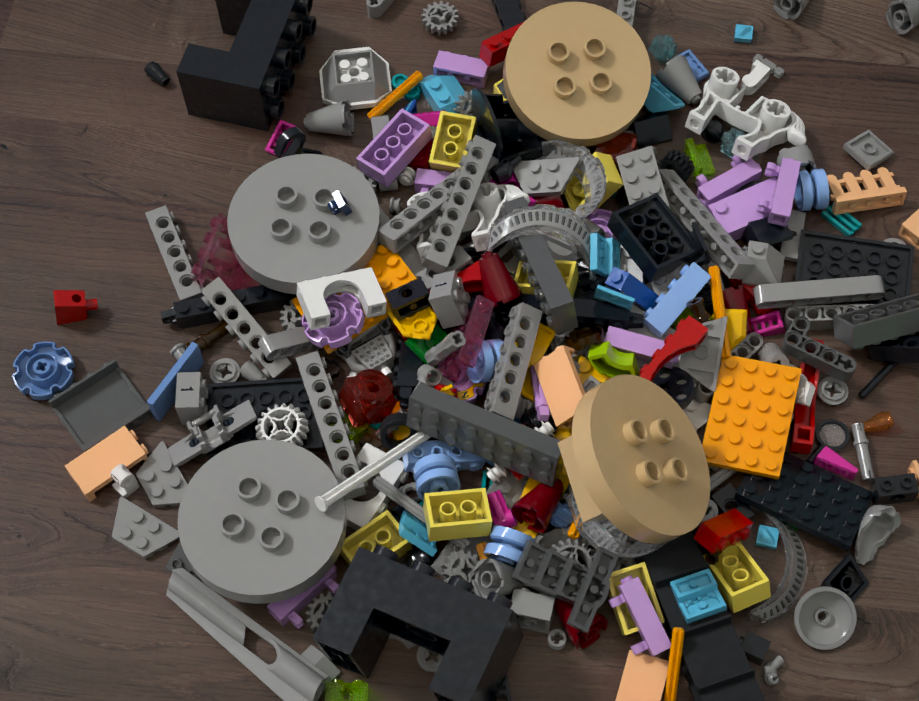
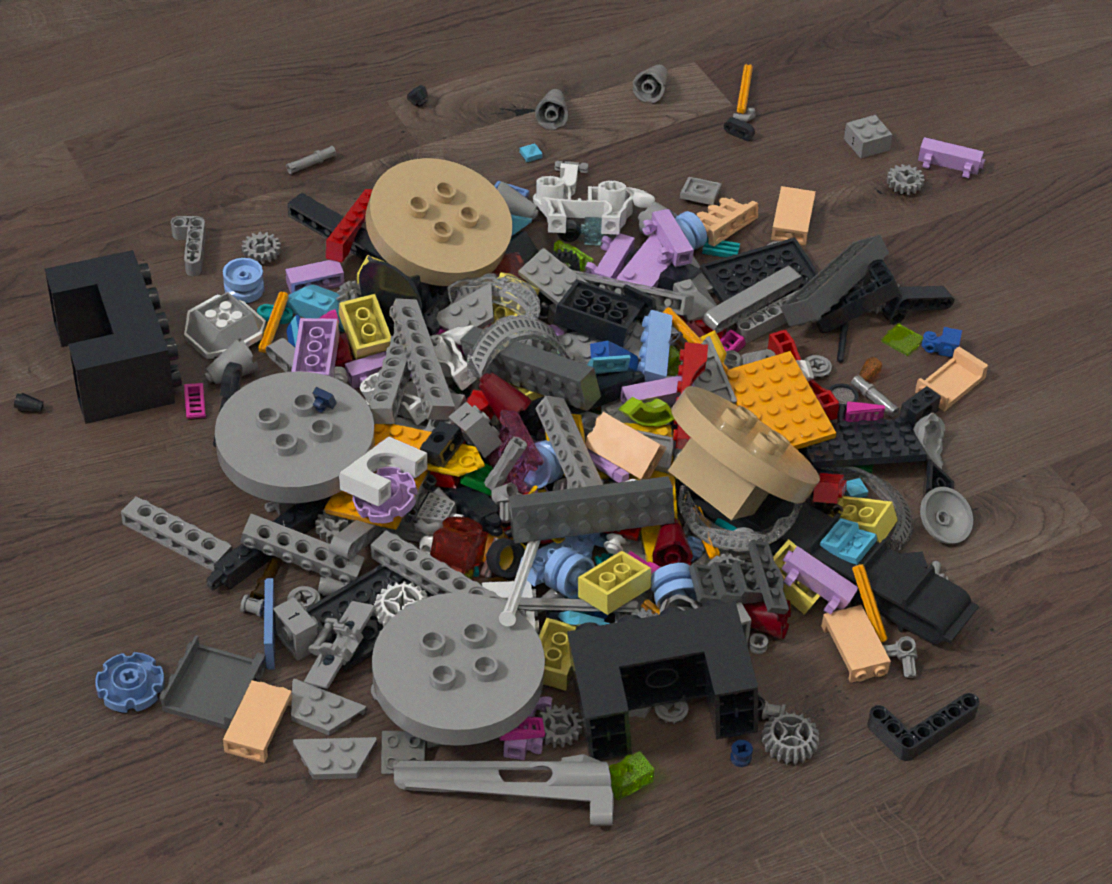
camera: 40 degrees left, 15 degrees down
(72, 306) = (113, 617): red torso -> none
(125, 481) = (288, 723): white leg -> none
(210, 249) = (215, 493): clear pink fence -> none
(292, 611) = (521, 733): none -> dark pink slope
(399, 43) = (244, 279): none -> light blue wheel
(584, 336) = (610, 405): dark brown plate -> none
(604, 254) = (571, 344): medium azure slope -> none
(819, 350) = (789, 337): dark grey beam -> none

